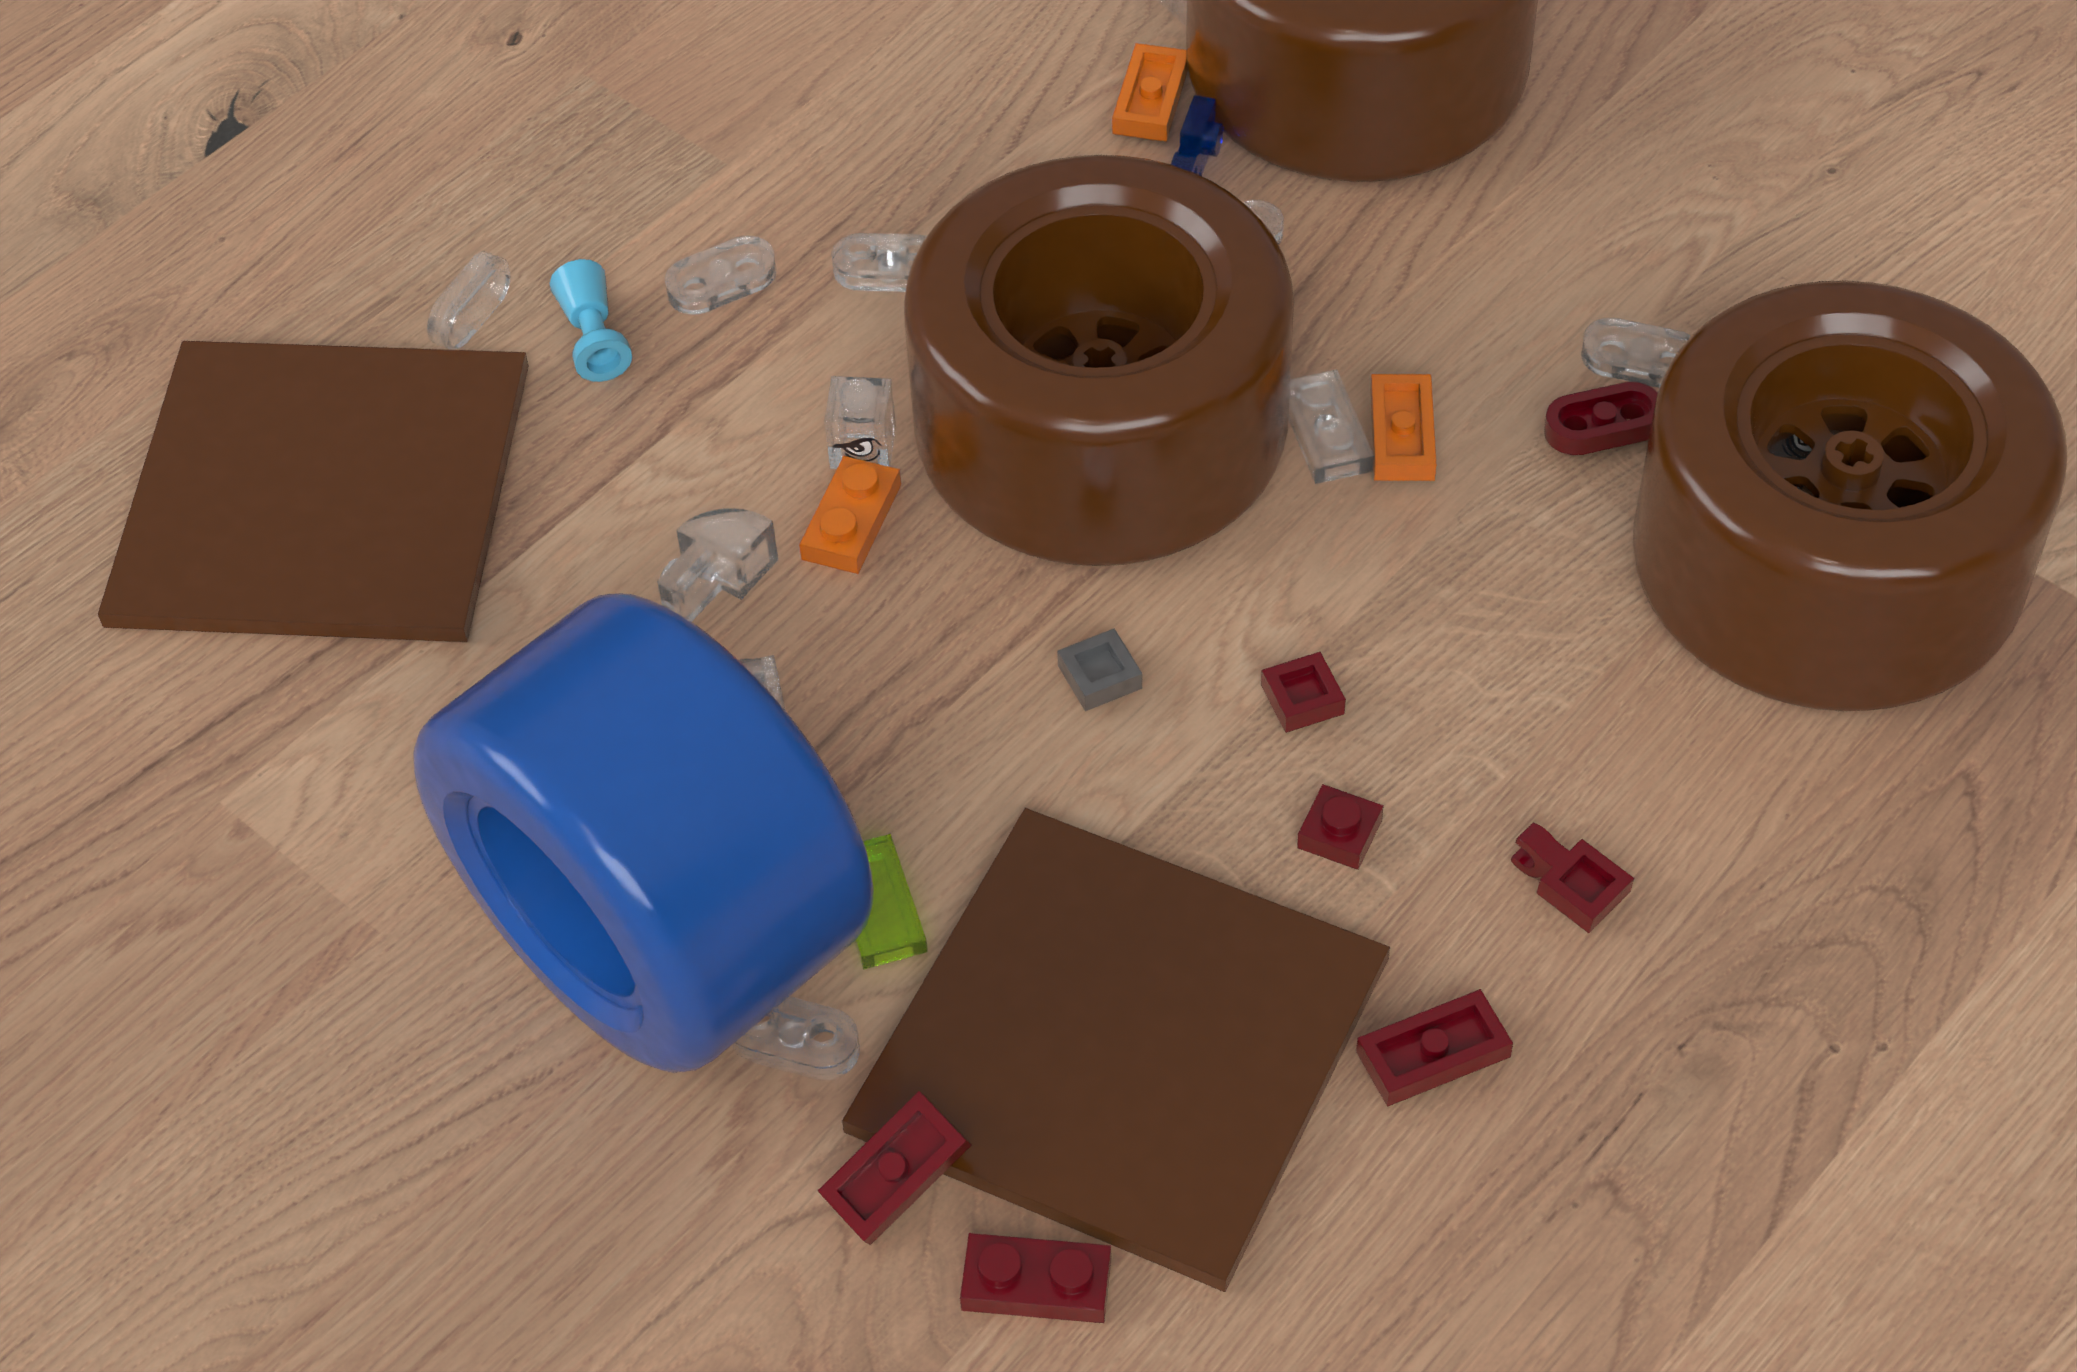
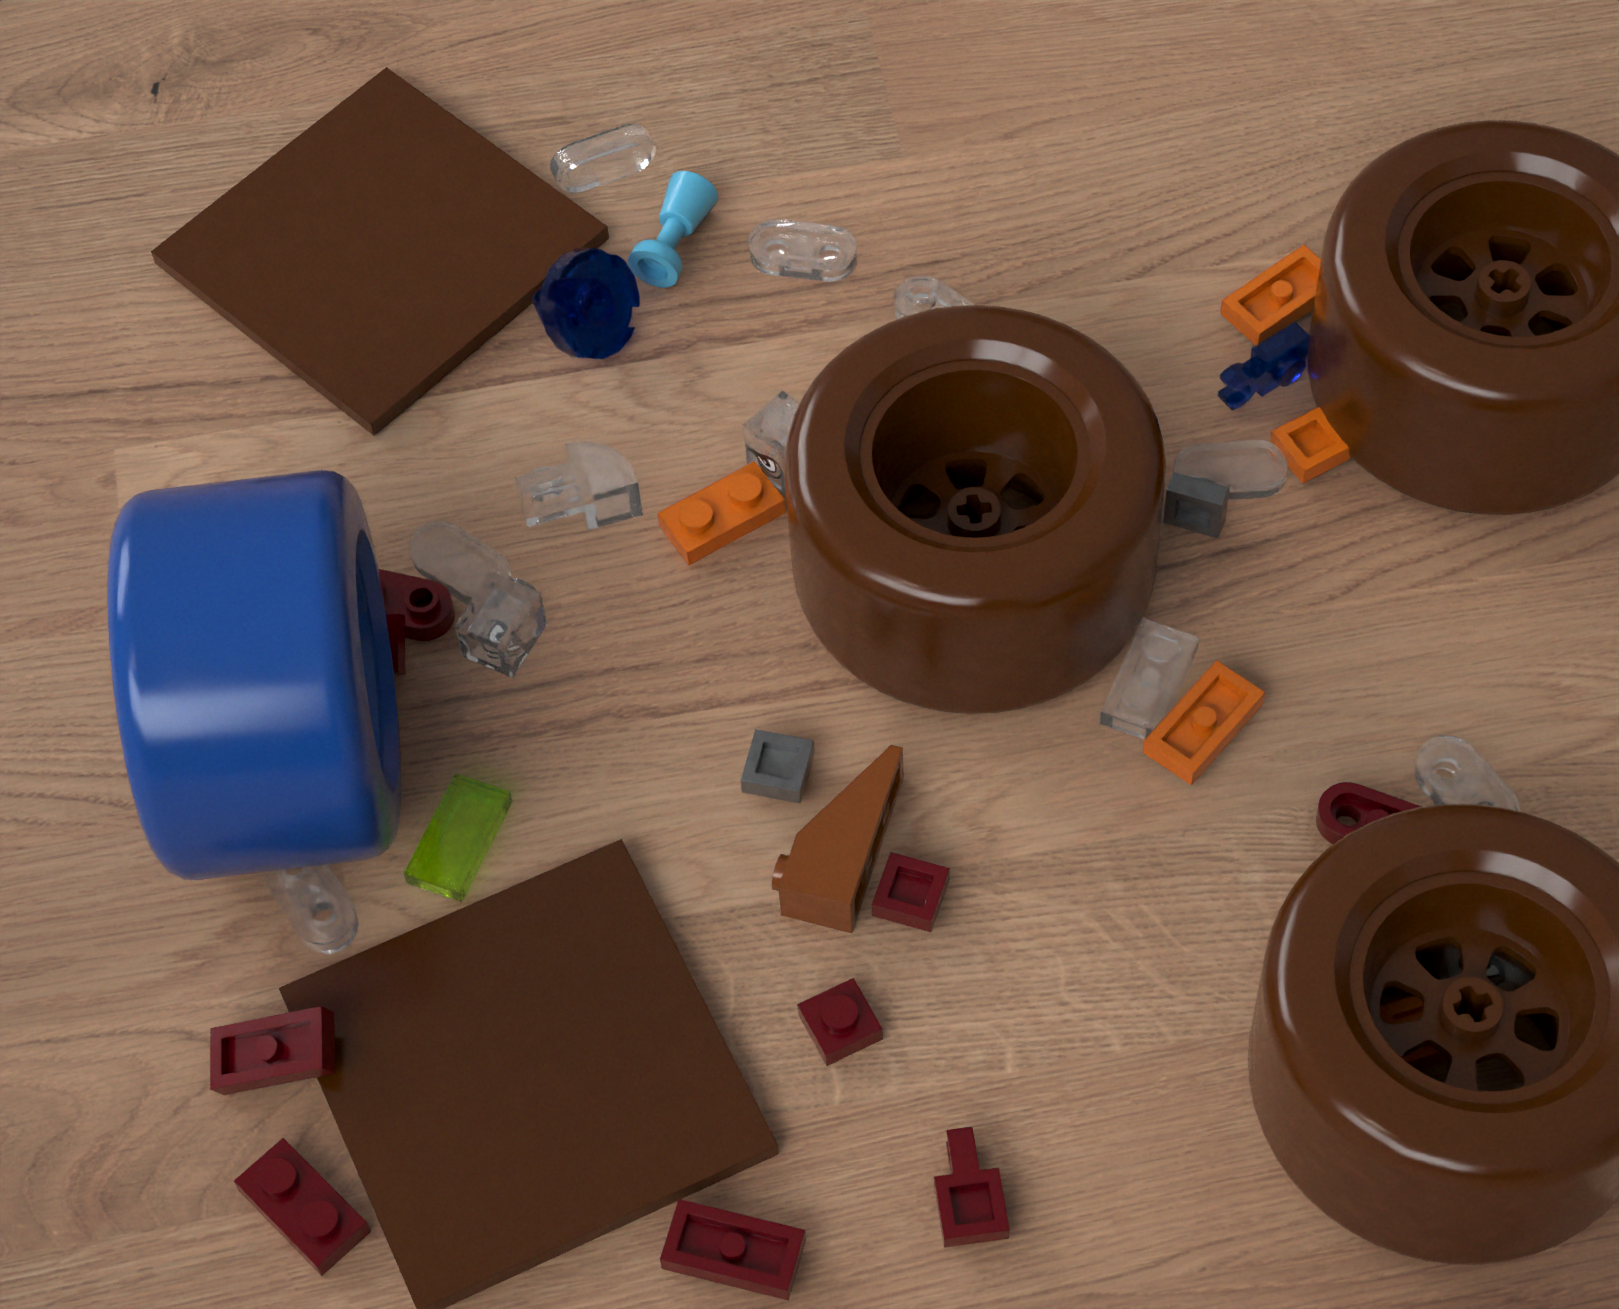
camera: 40 degrees right, 5 degrees up
(575, 416) = (588, 303): none -> clear blue tile
(1224, 710) = (838, 848): none -> dark orange slope
(1283, 183) = (1310, 445): none -> orange plate

